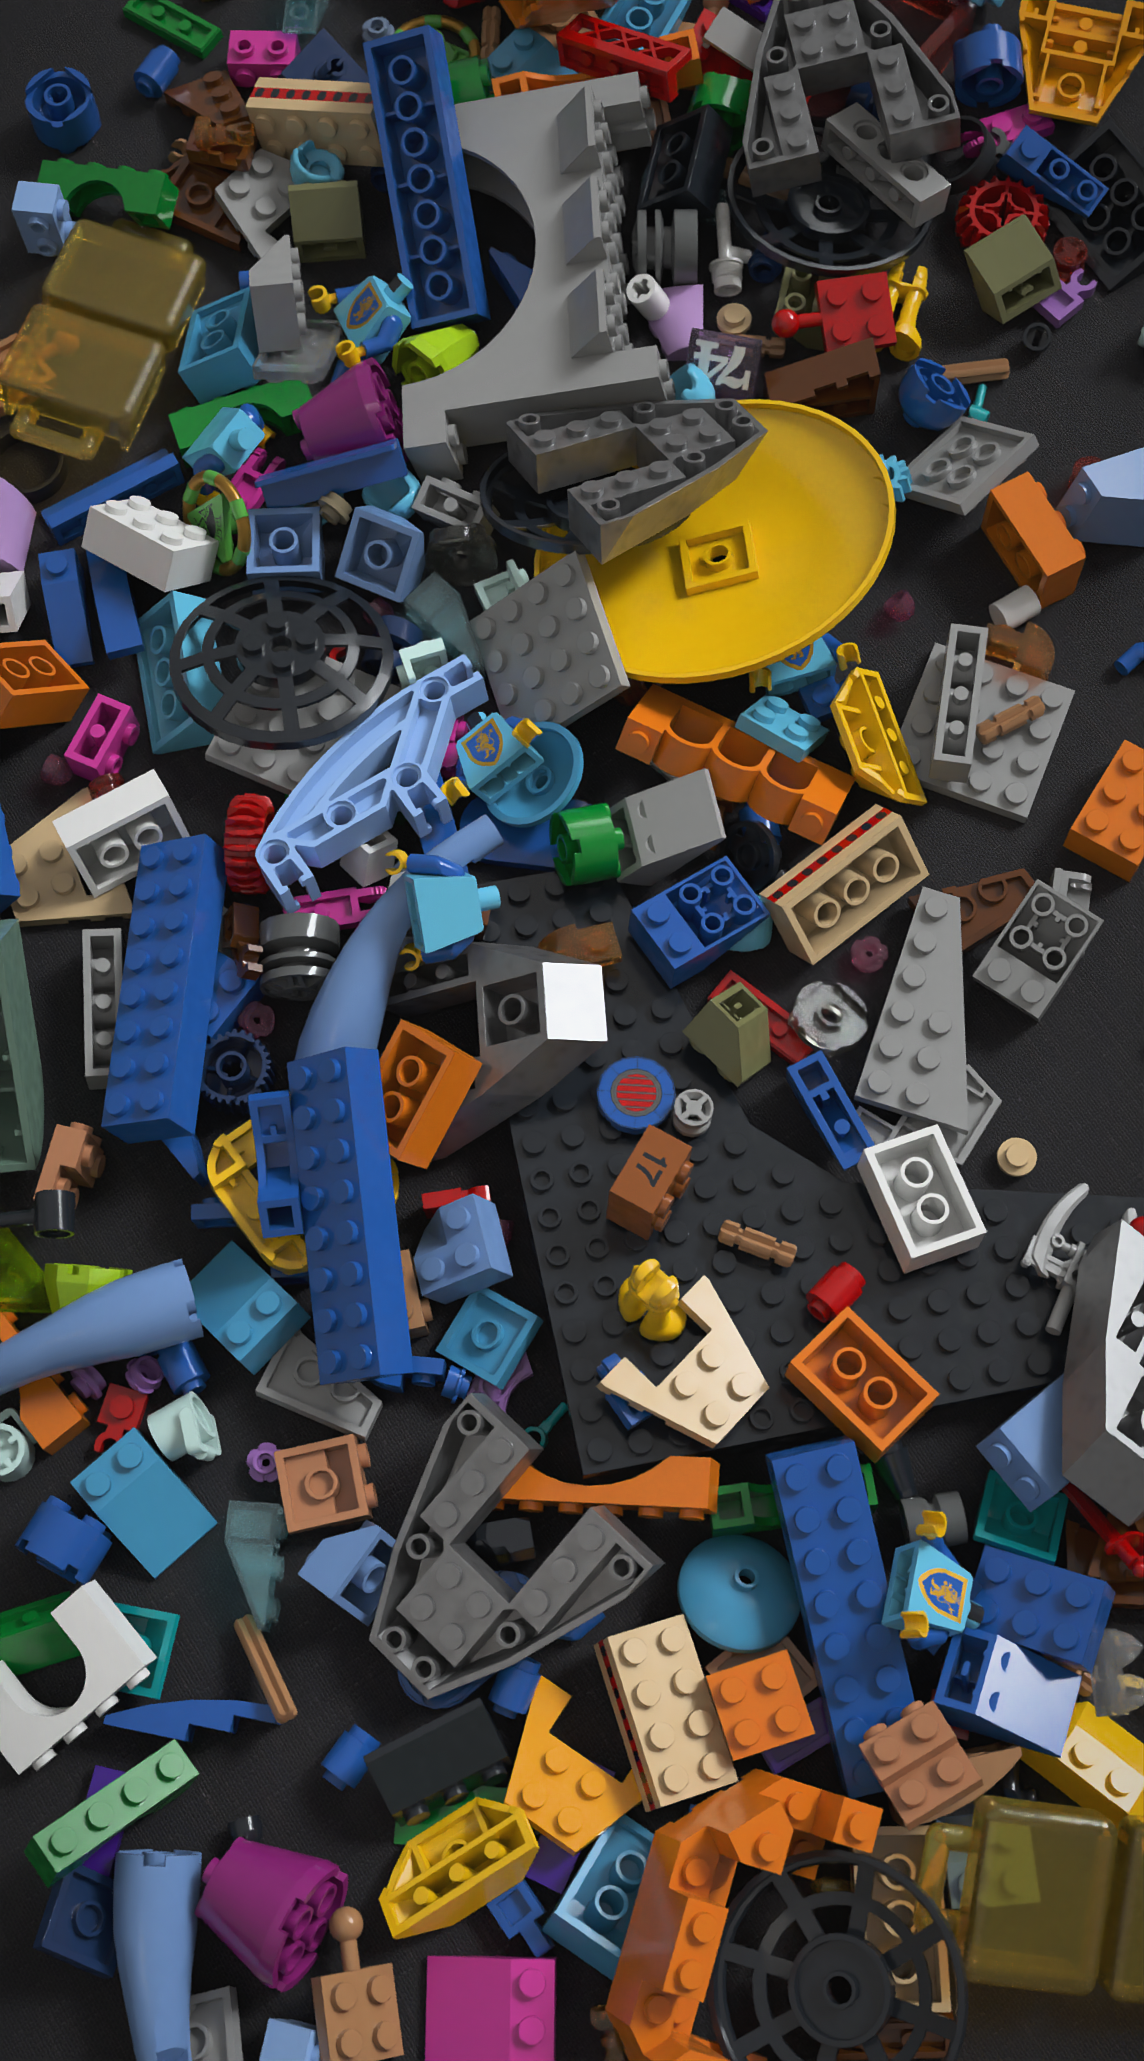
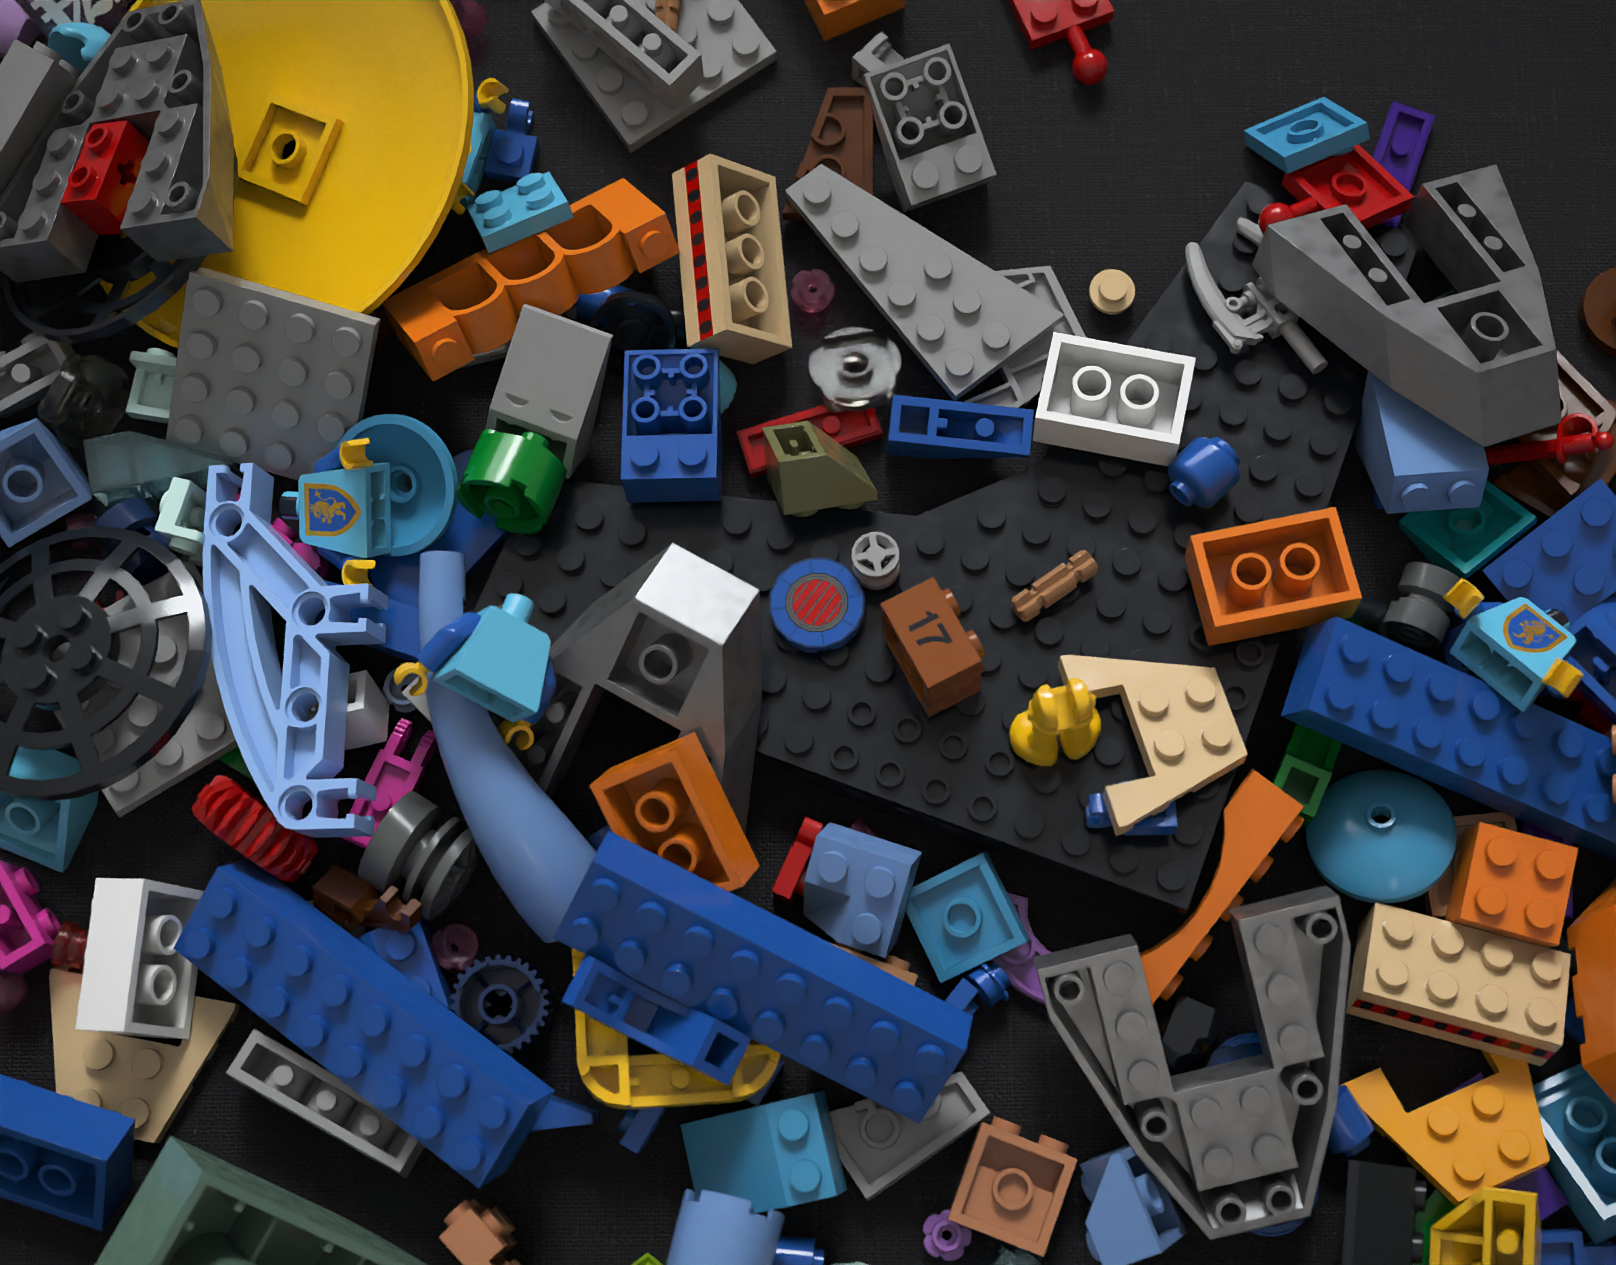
camera: 60 degrees left, 5 degrees up
(546, 1426) = (1088, 918): teal hand -> none
(592, 944) = (625, 549): clear orange brick -> none
(607, 456) = (105, 175): none -> red brick
(835, 1291) = (1156, 542): red brick -> none
(874, 739) = (598, 134): yellow wedge -> none
(910, 1293) = (1204, 472): none -> blue head

